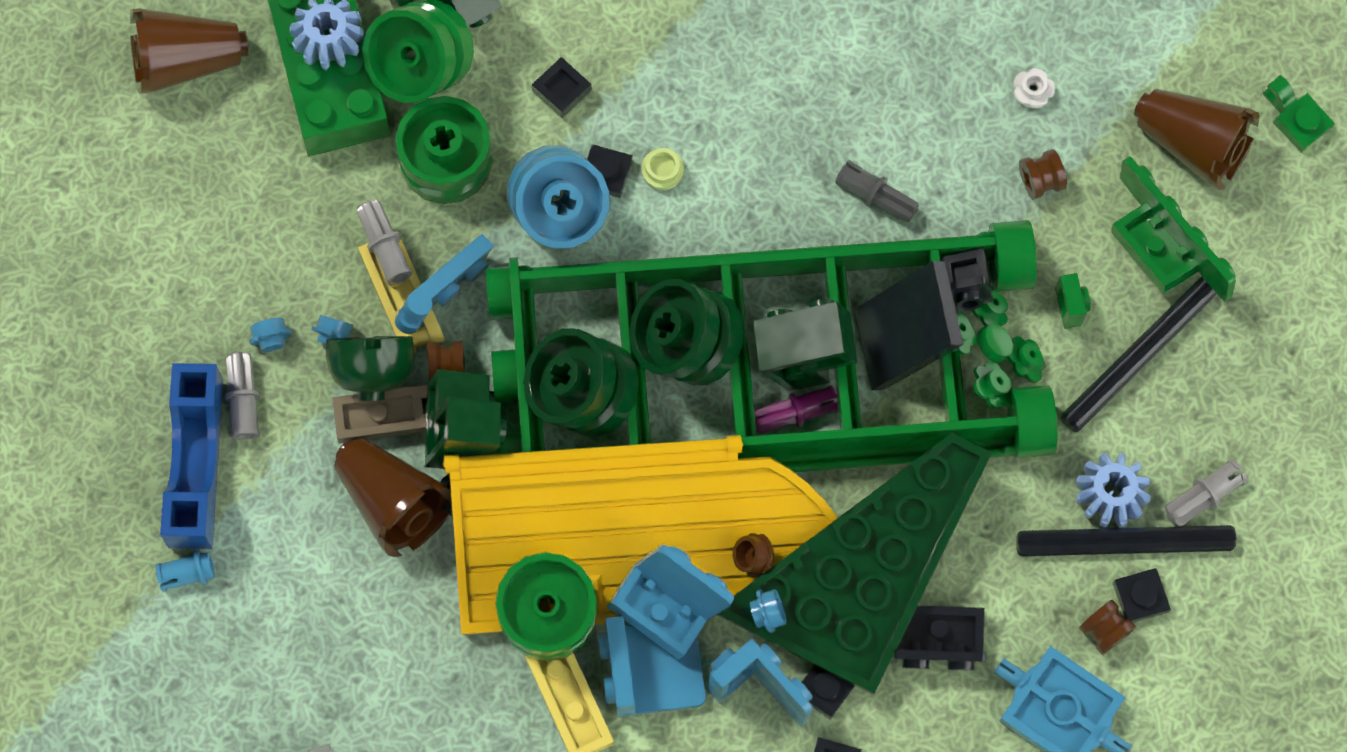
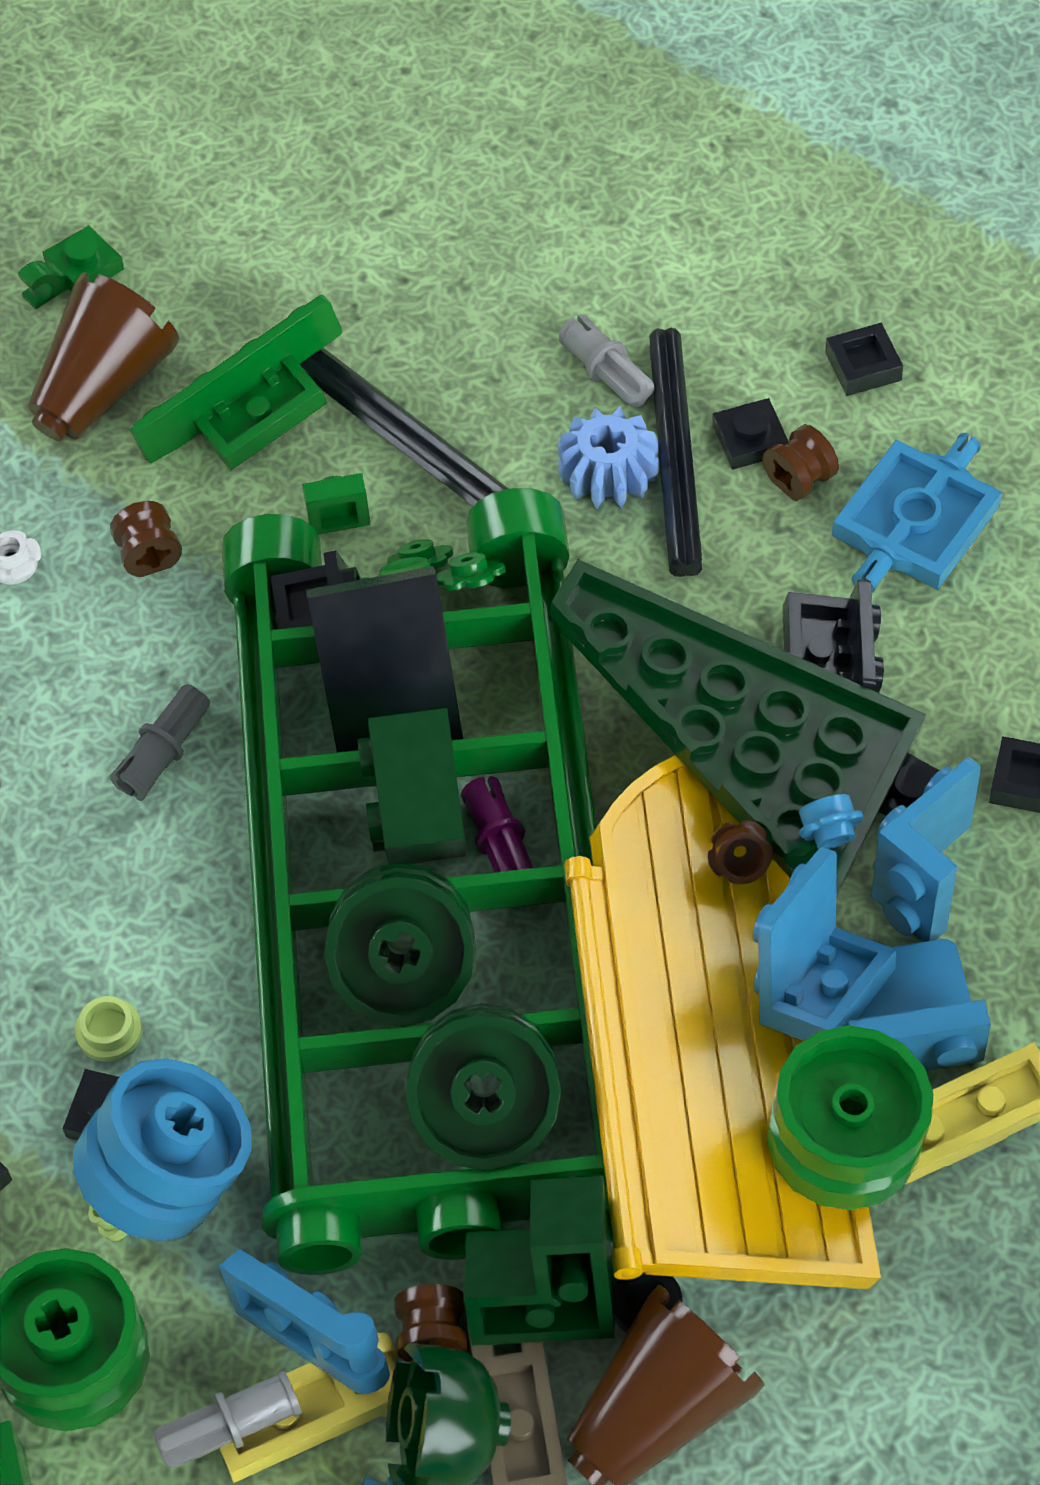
camera: 85 degrees left, 15 degrees down
(1208, 682) = (864, 359): none -> black plate

